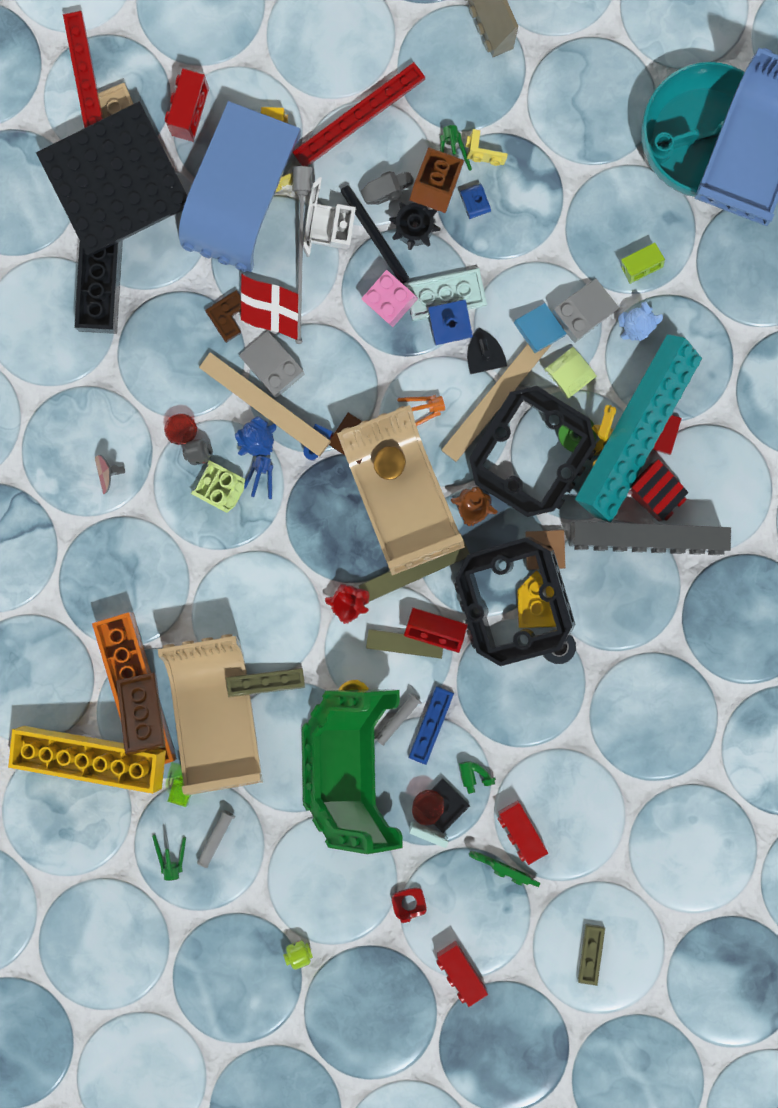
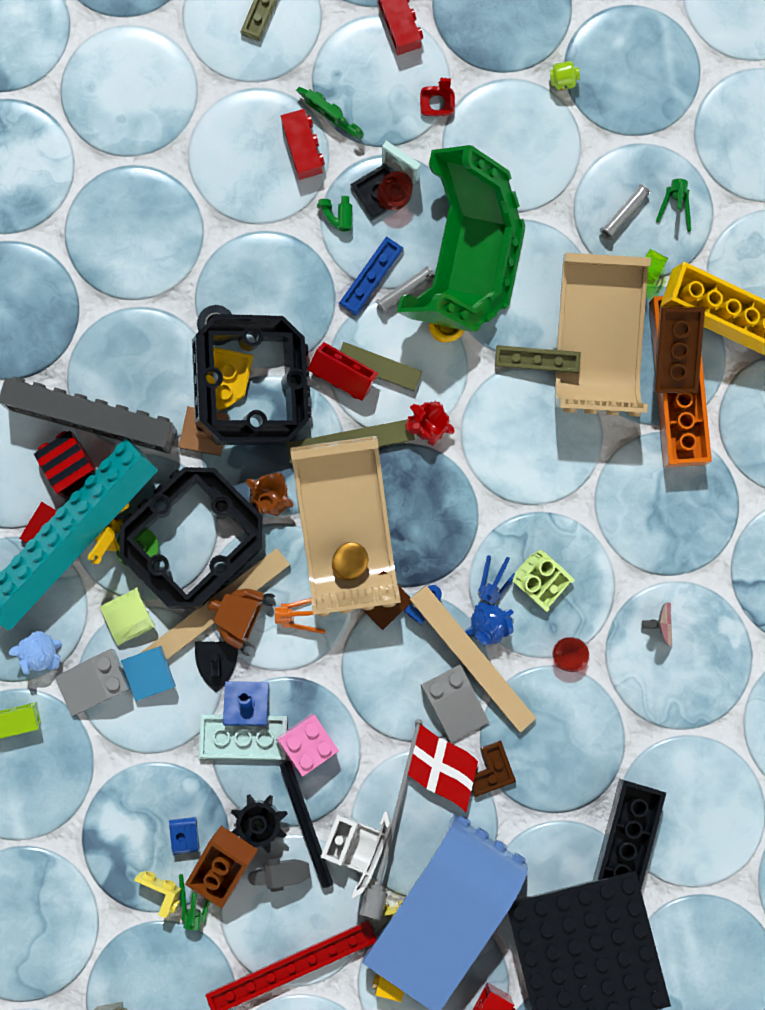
camera: 170 degrees left, 5 degrees down
(197, 452) = (557, 623): dark grey head -> none
(475, 393) = (238, 615): none -> dark orange torso

